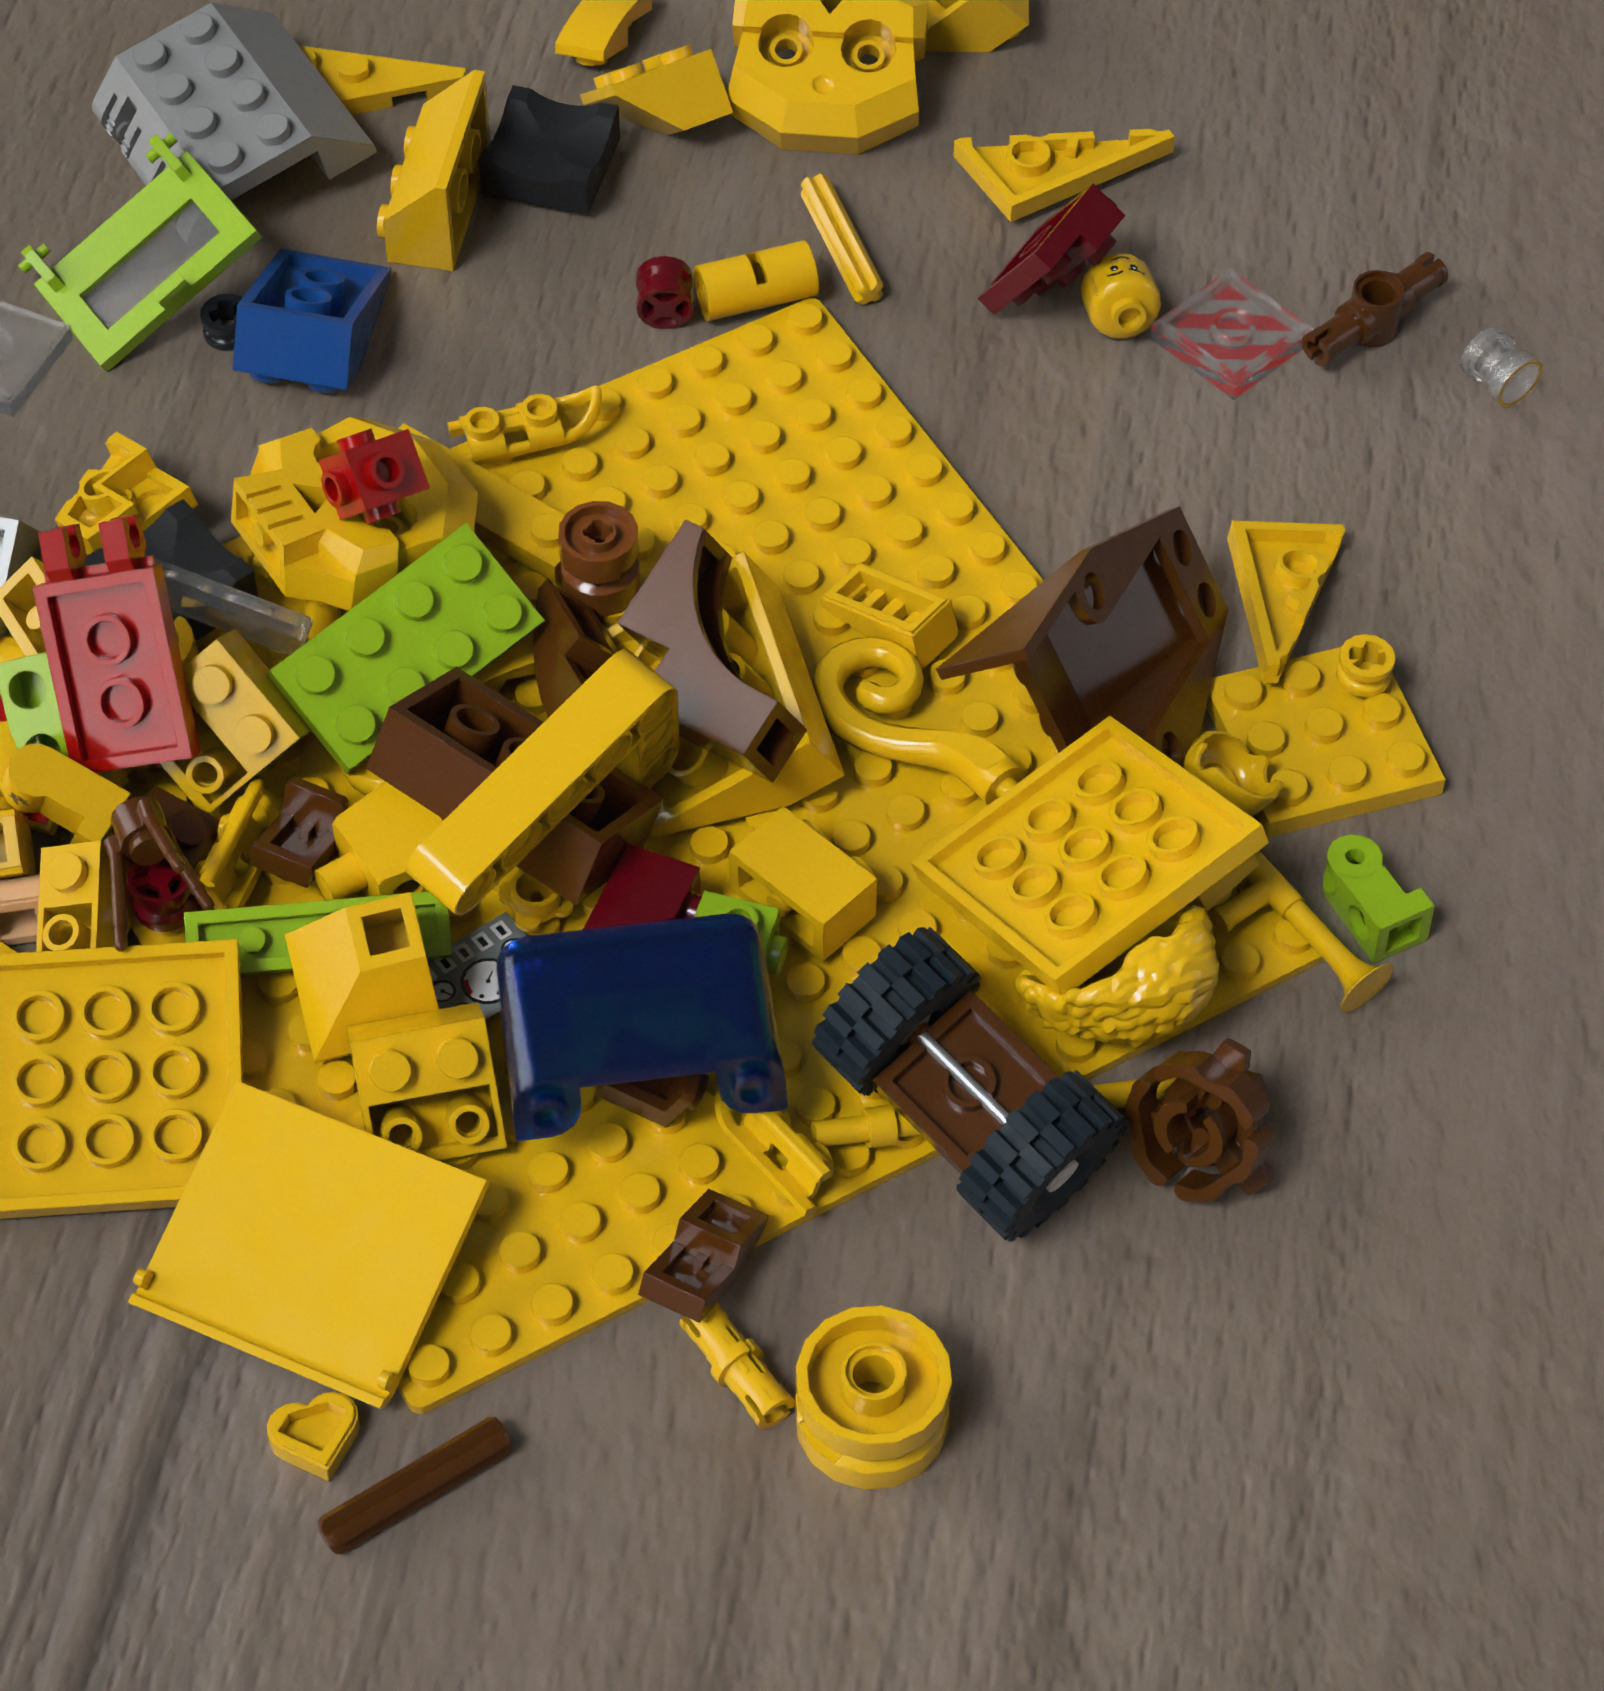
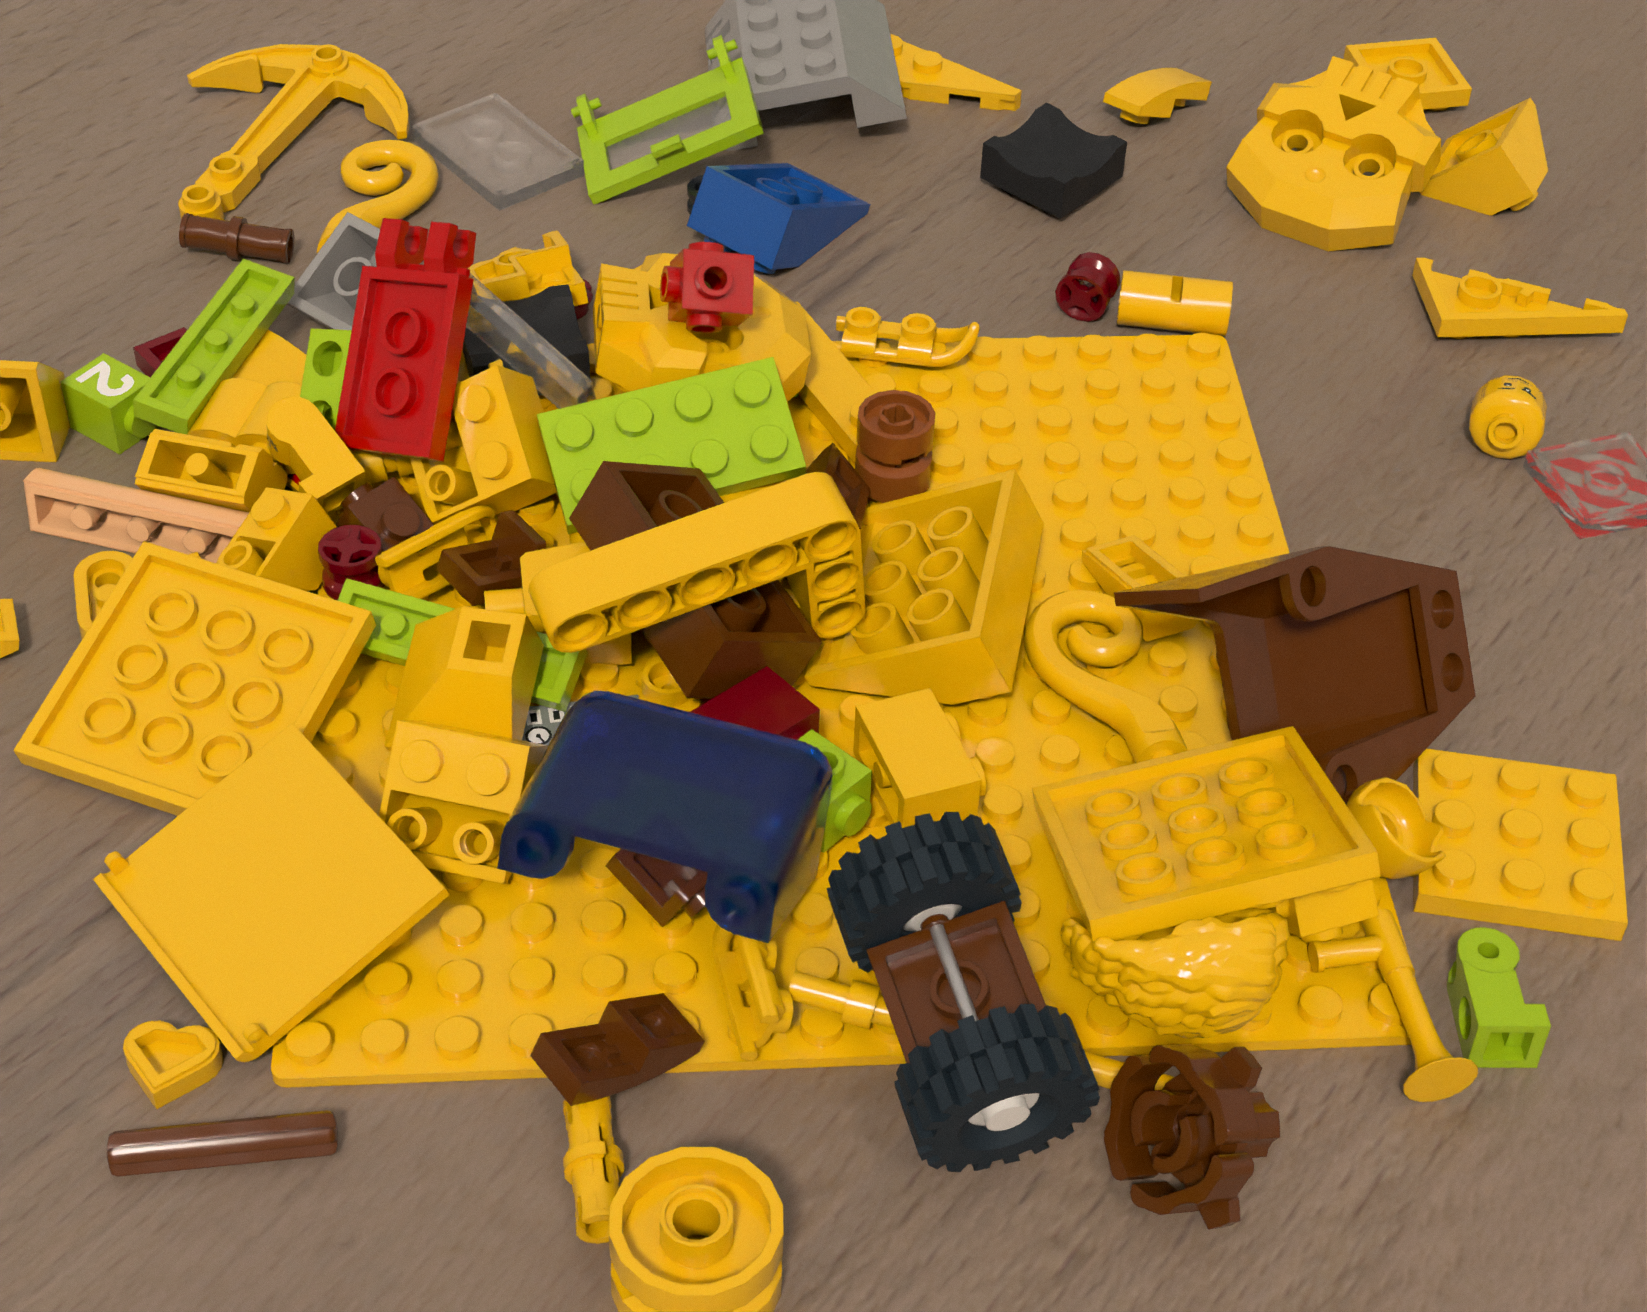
camera: 25 degrees right, 10 degrees down
(146, 839) = (346, 505): reddish brown plant -> none
(438, 178) = (944, 152): yellow slope -> none
(670, 95) = (1177, 150): yellow slope -> none
(682, 623) = (913, 550): reddish brown arch -> none
(841, 239) = (1273, 302): yellow axle -> none
(1057, 250) = (1460, 356): dark red plate -> none
(1279, 580) = (1543, 691): yellow wing -> none
(1370, 649) = (1589, 786): yellow bush -> none

